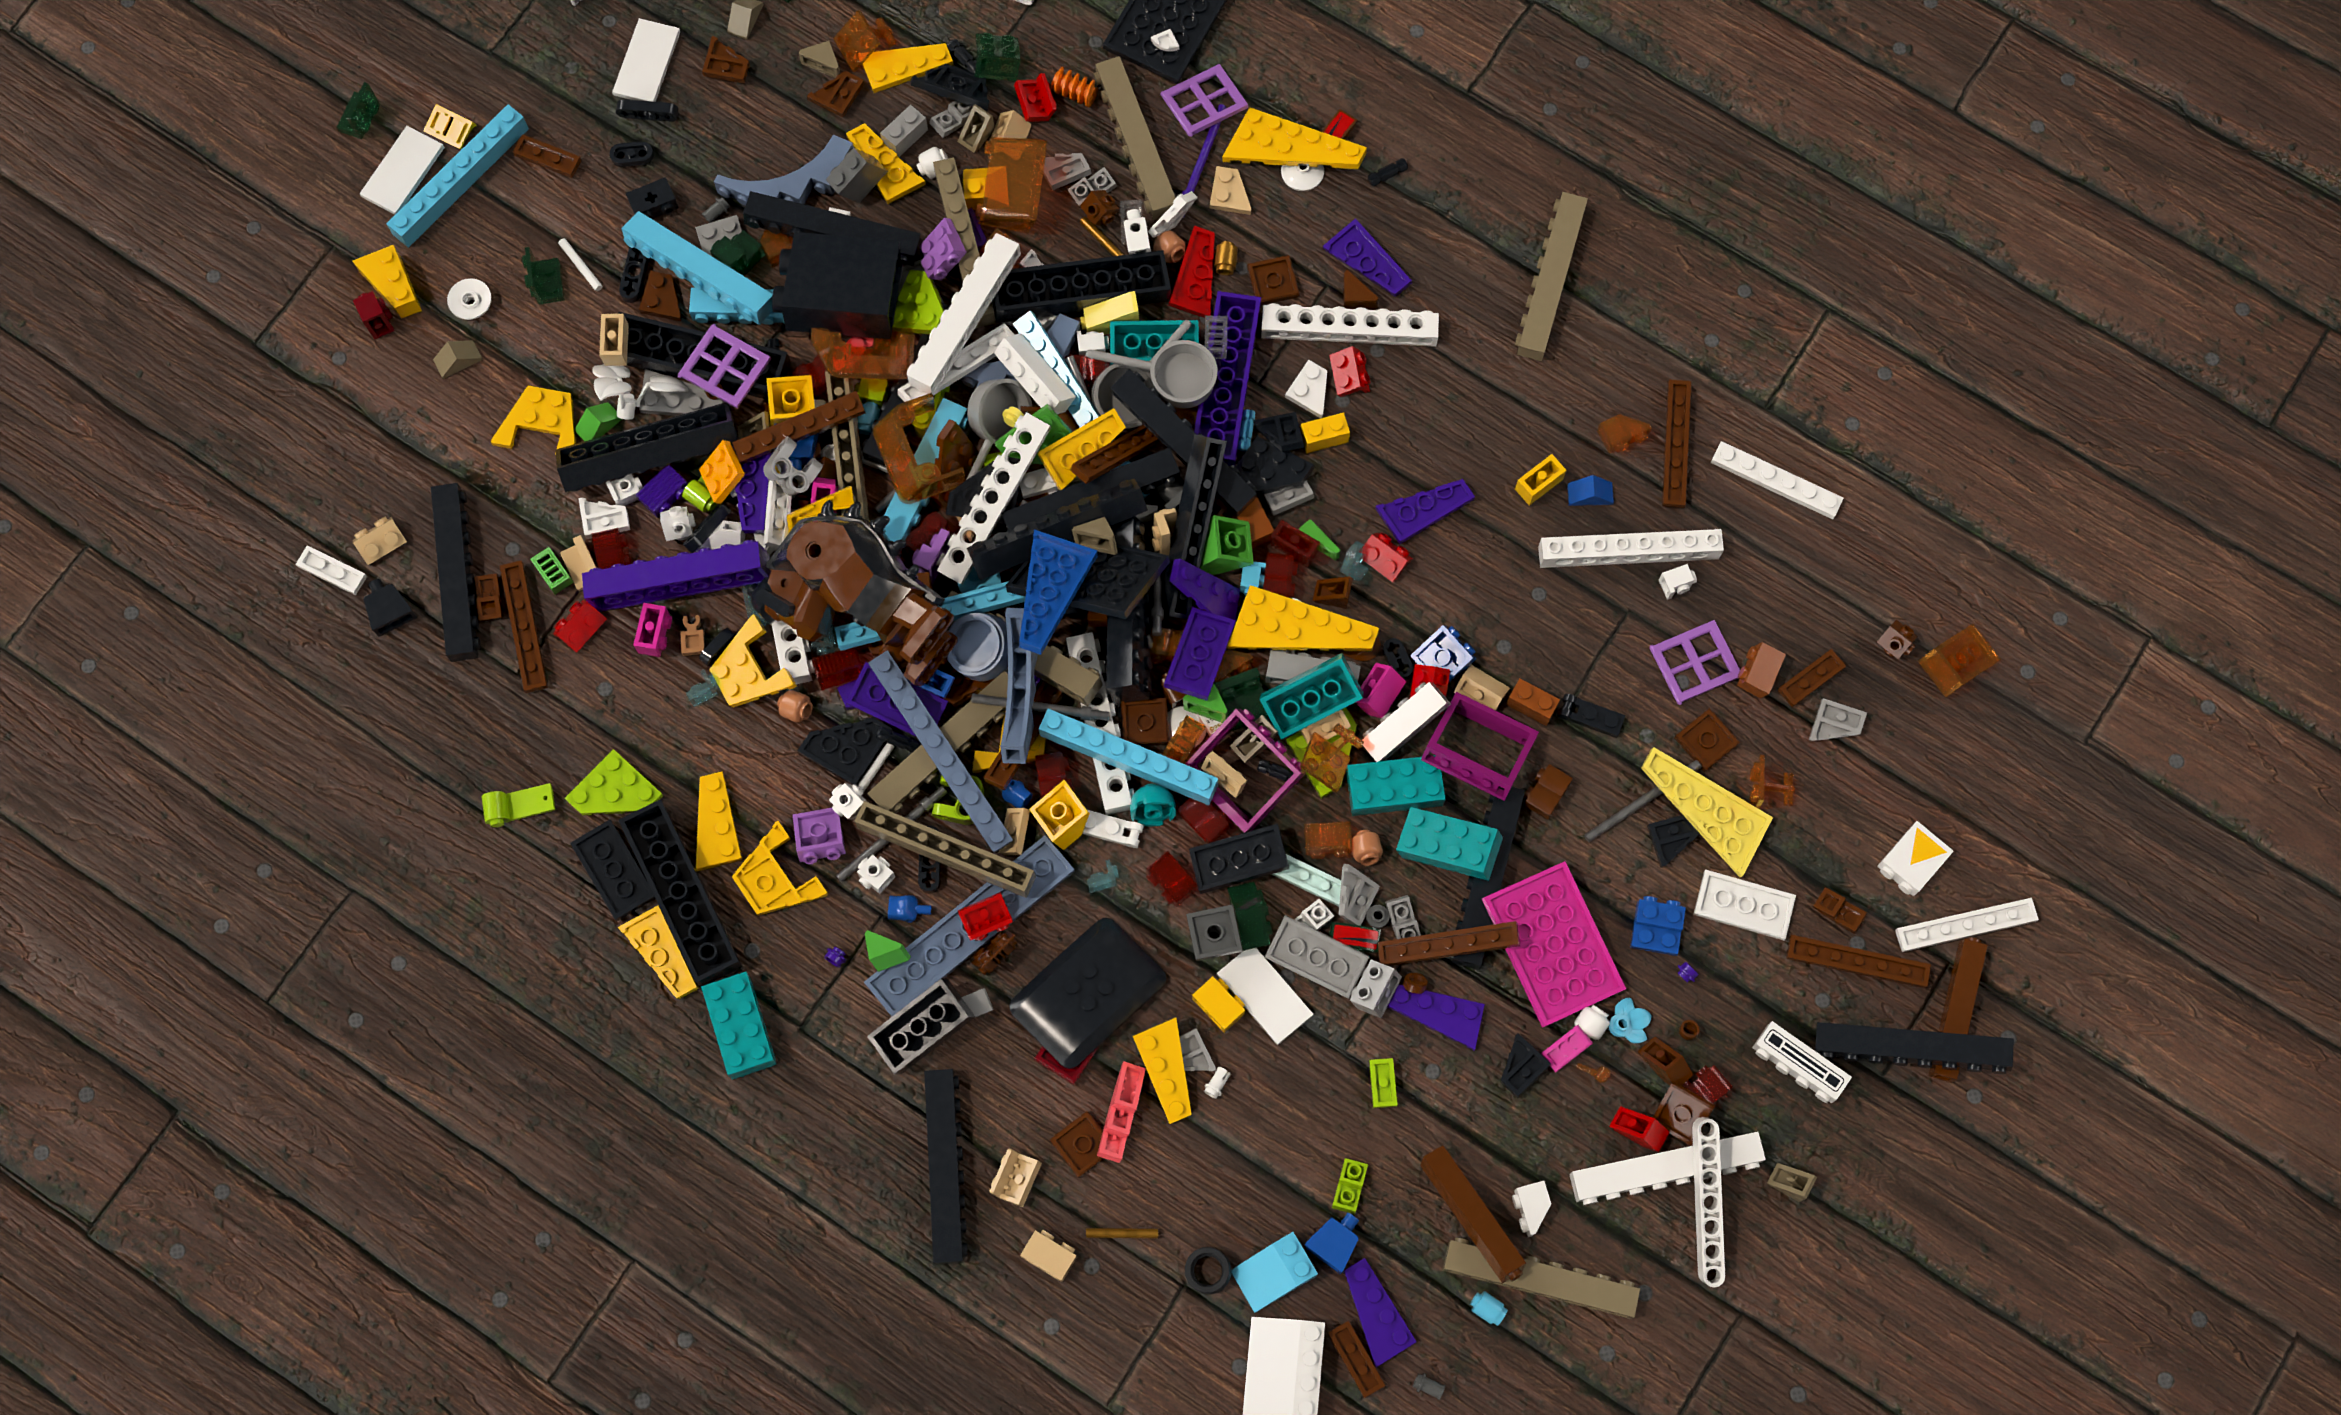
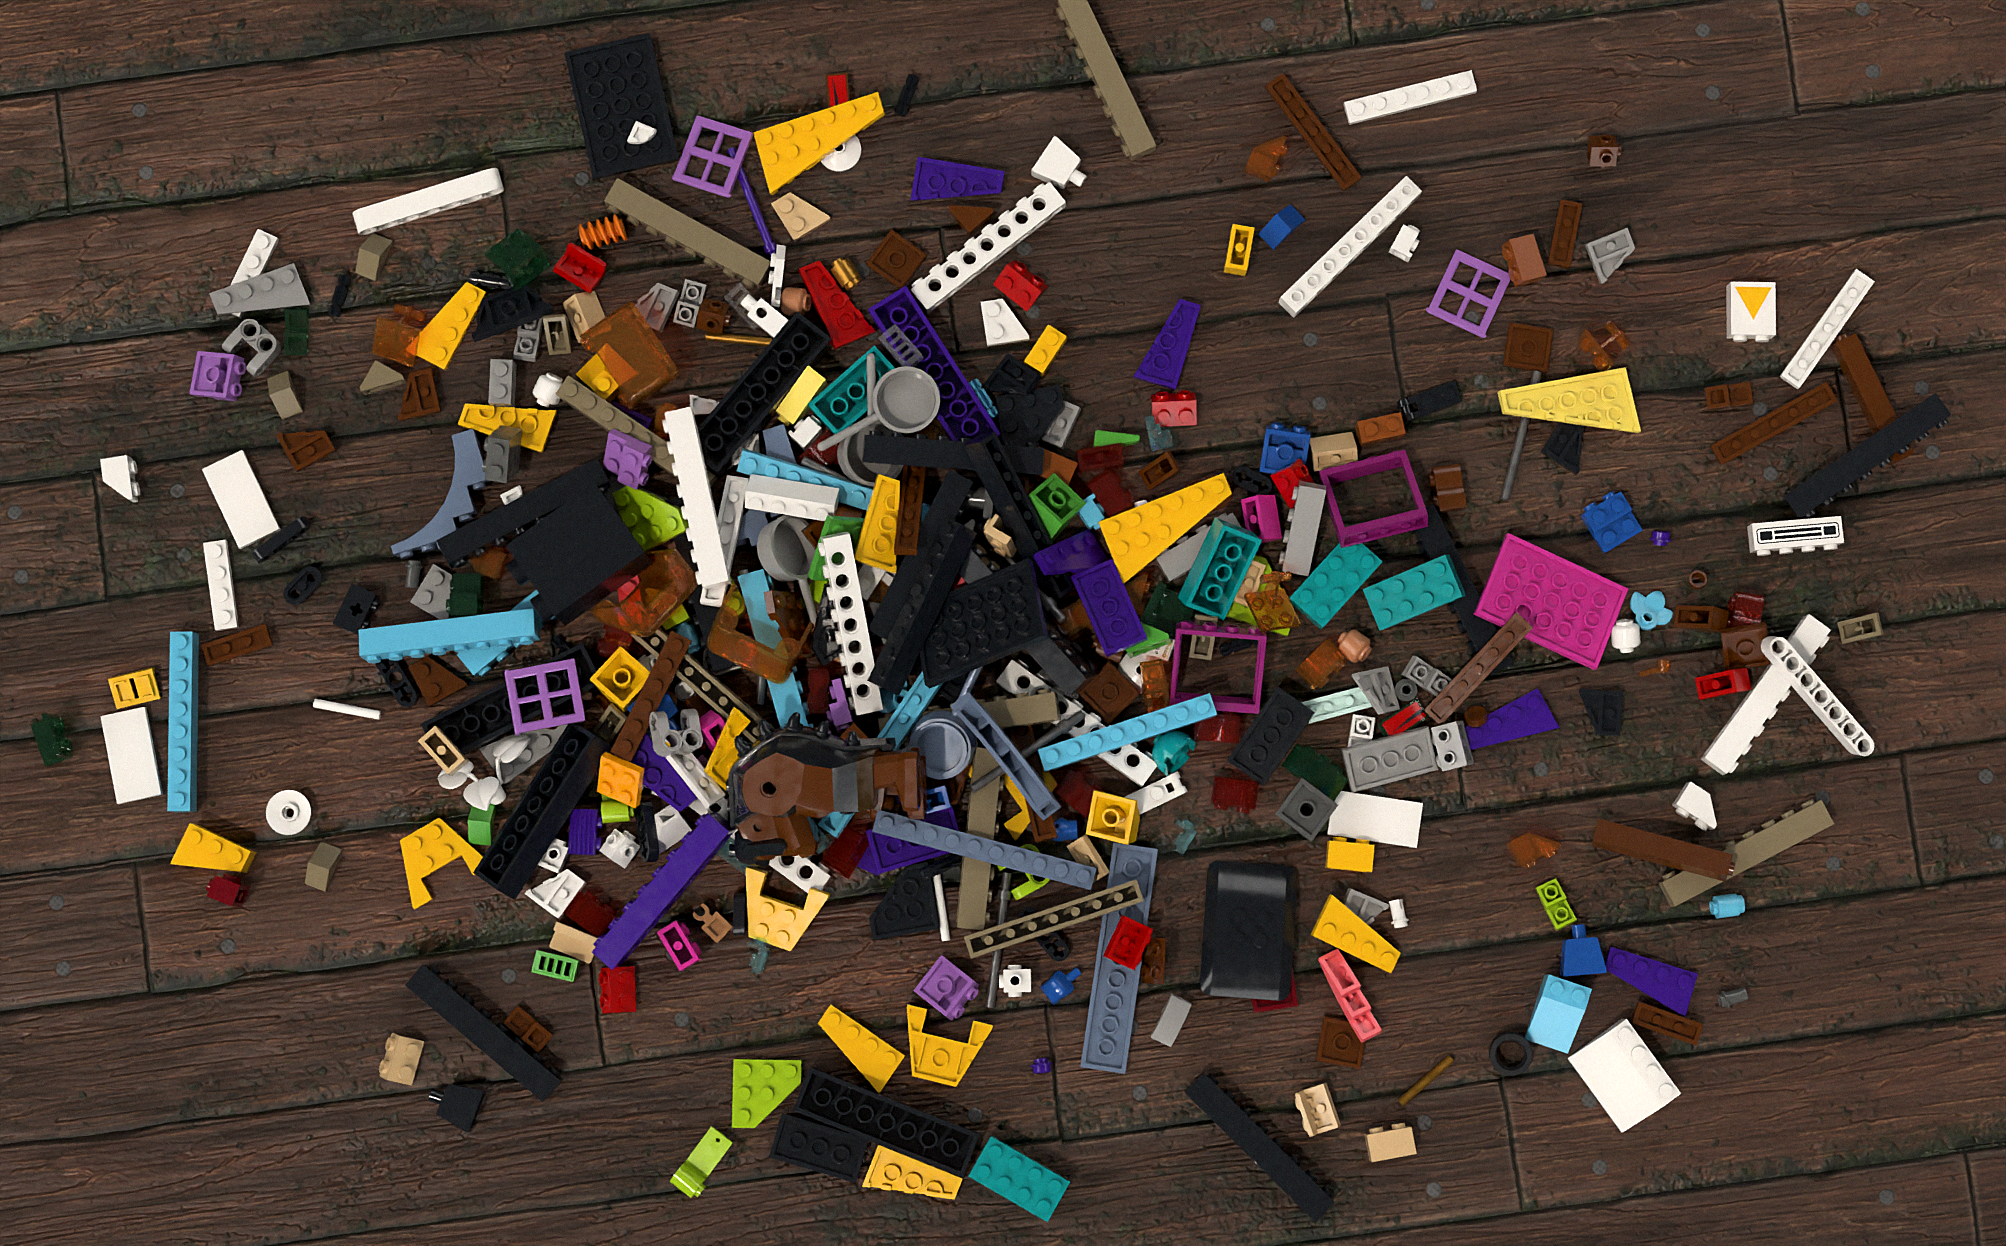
camera: 40 degrees left, 10 degrees up
(331, 570) = (387, 1114): white plate -> none
(523, 626) = (577, 1027): reddish brown plate -> none
(543, 278) = (332, 744): clear green bracket -> none
(576, 107) = (221, 585): none -> white plate
(795, 706) = (839, 908): nougat head -> none
(847, 800) = (953, 939): white brick -> none
(884, 952) = (1076, 1033): bright green slope -> none
(921, 1026) = (1154, 1063): black brick -> none
(1011, 415) = (806, 546): light yellow plate -> none
(1053, 580) = (965, 653): blue wing -> none
(1096, 536) = (958, 588): dark tan slope -> none
(1227, 776) = (1200, 684): tan plate -> none
(1368, 1122) = (1530, 847): none -> clear orange slope
(1383, 1083) = (1515, 809): lime plate -> none
(1456, 310) = (1058, 165): none -> white torso
(1567, 1048) = (1624, 669): dark pink plate -> none
(1744, 905) = (1658, 450): white tile -> none
(1959, 660) = (1659, 128): clear orange slope -> none

